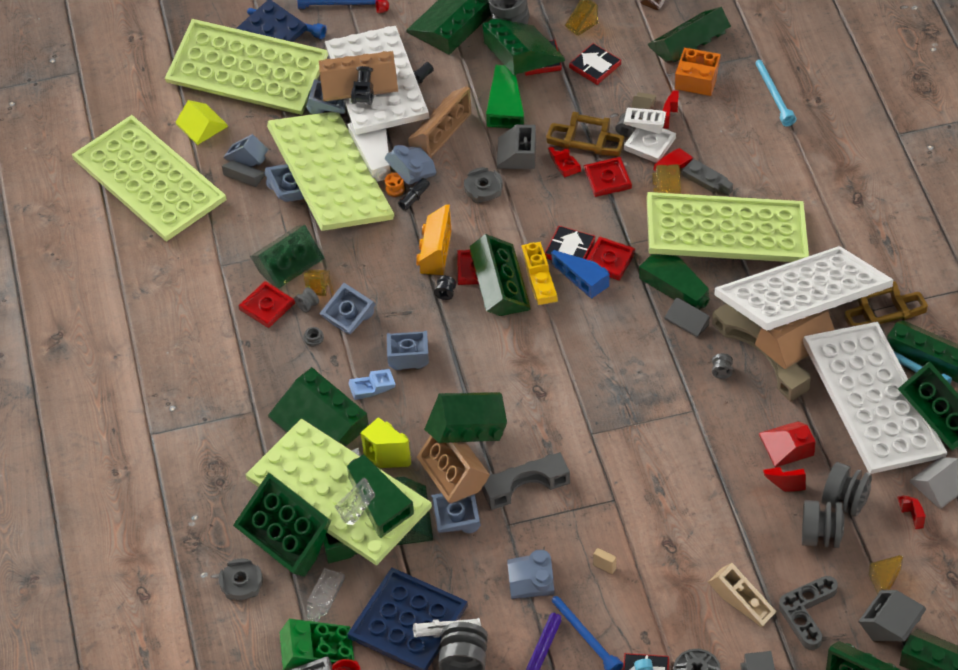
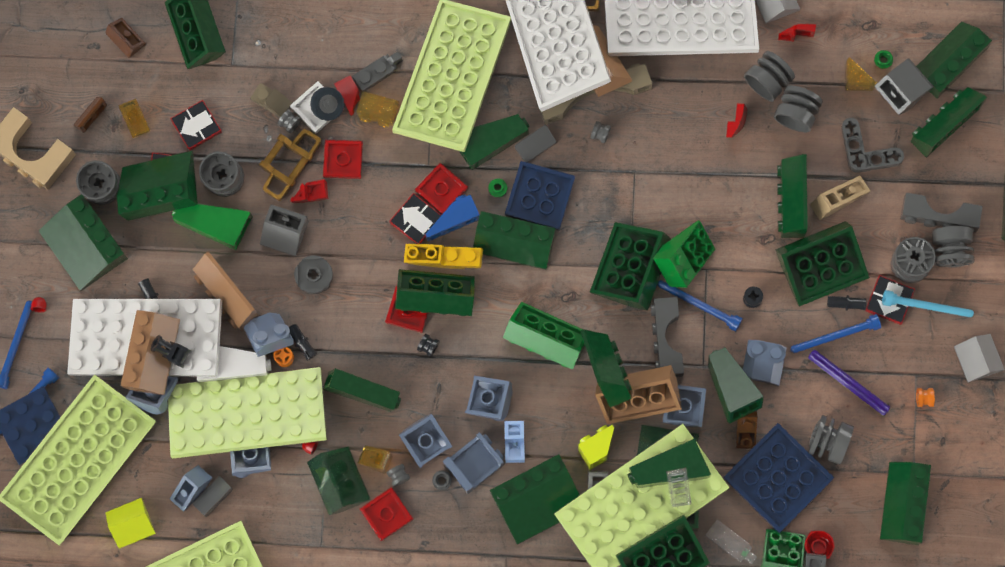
camera: 70 degrees left, 25 degrees up
(314, 228) = (310, 447): none -> red hinge
(337, 356) = (474, 462): none -> sand blue panel
(380, 245) = (361, 390): none -> dark green slope
(435, 242) = (373, 338): light orange slope -> none
(435, 627) = (802, 454): white pin -> none
(456, 572) = (746, 431): none -> reddish brown slope
(488, 540) = (734, 388): none -> slope
(492, 368) = (545, 335): none -> green slope
(552, 86) = (219, 164): none -> dark grey wheel
(564, 534) = (732, 321): none -> blue piece
(578, 326) = (514, 240): none -> dark green slope
(590, 431) = (628, 267): none -> dark green slope
(594, 539) = (750, 299): none -> black wheel
(604, 560) = (772, 296): tan tile -> none
(618, 467) = (684, 255): none -> green slope
(625, 634) = (846, 302): none -> black axle
(628, 301) = (497, 193): none -> green plate
(634, 335) = (539, 195): none -> dark blue plate
(651, 119) = (301, 91): white slope -> none
(653, 140) = (327, 103): none -> black wheel
(660, 598) = (822, 263): none -> dark green slope
(670, 105) = (280, 71): red slope -> none
(697, 71) = (248, 35): orange slope -> none
(718, 551) = (793, 197): none -> dark green slope
(788, 443) = (696, 106): red slope -> none
(922, 593) = (883, 54): none -> green plate

